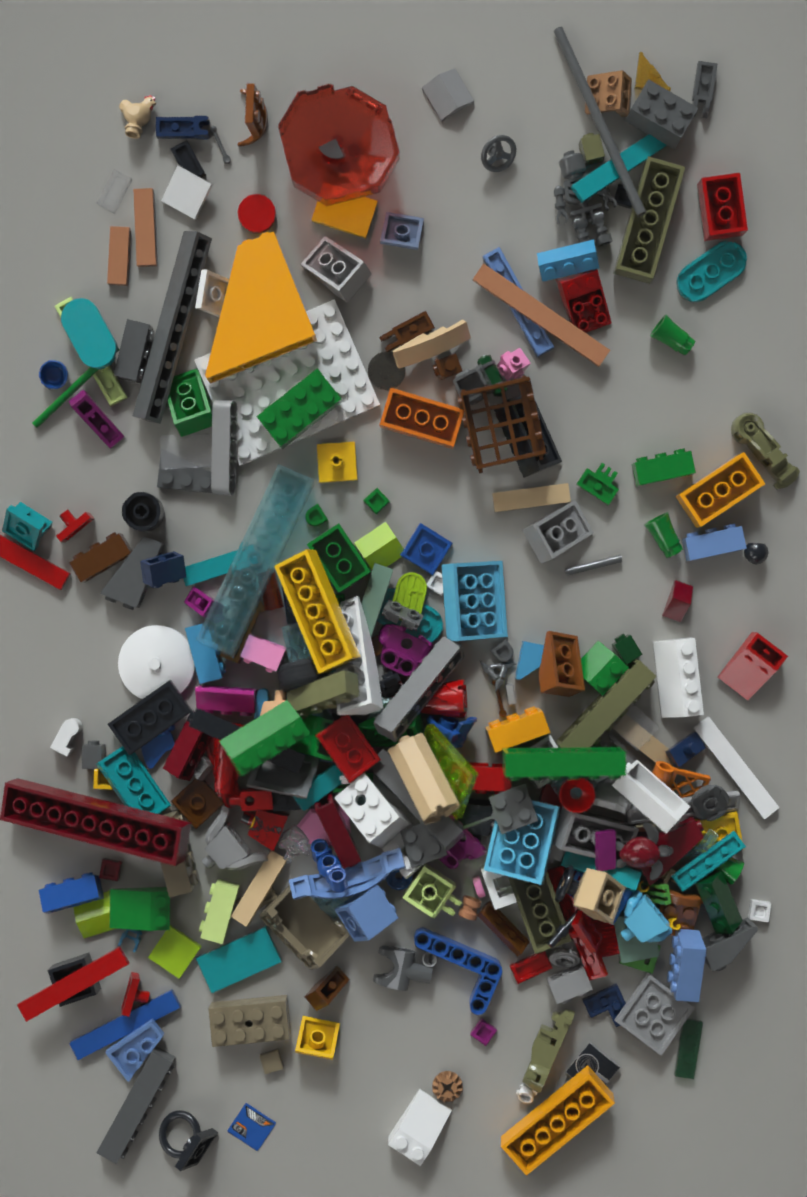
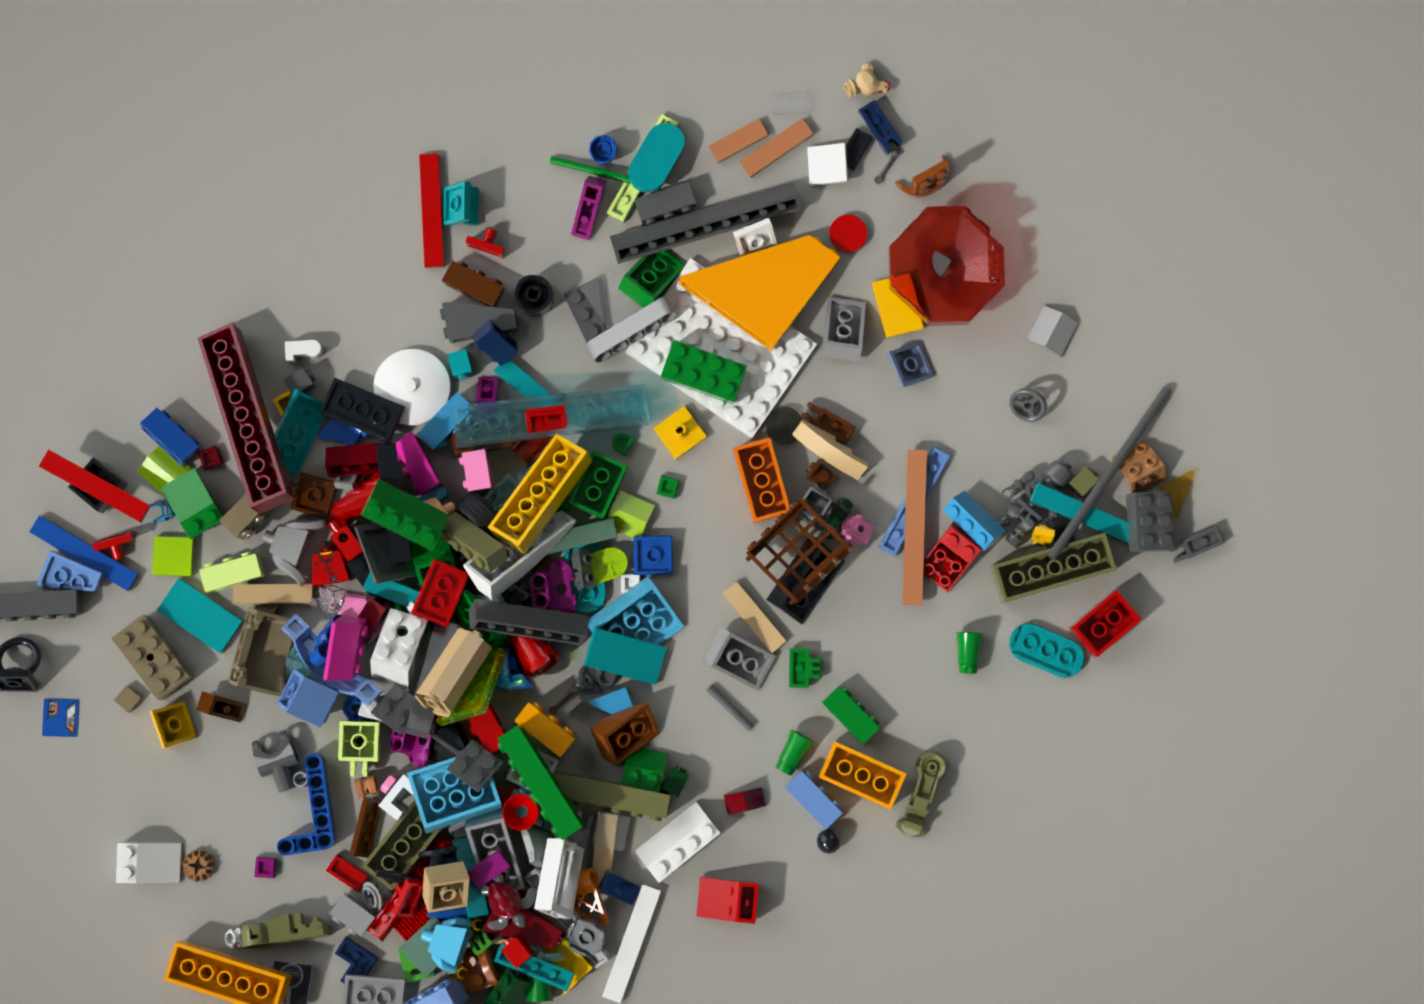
camera: 55 degrees right, 5 degrees down
(163, 610) = (460, 364): none -> teal brick
(256, 566) = (545, 419): none -> red hinge
(345, 857) = (345, 648): none -> dark pink slope
(497, 625) = (625, 656): none -> teal tile
(616, 210) = (1042, 535): none -> yellow plate
(688, 868) = (517, 950): none -> red brick

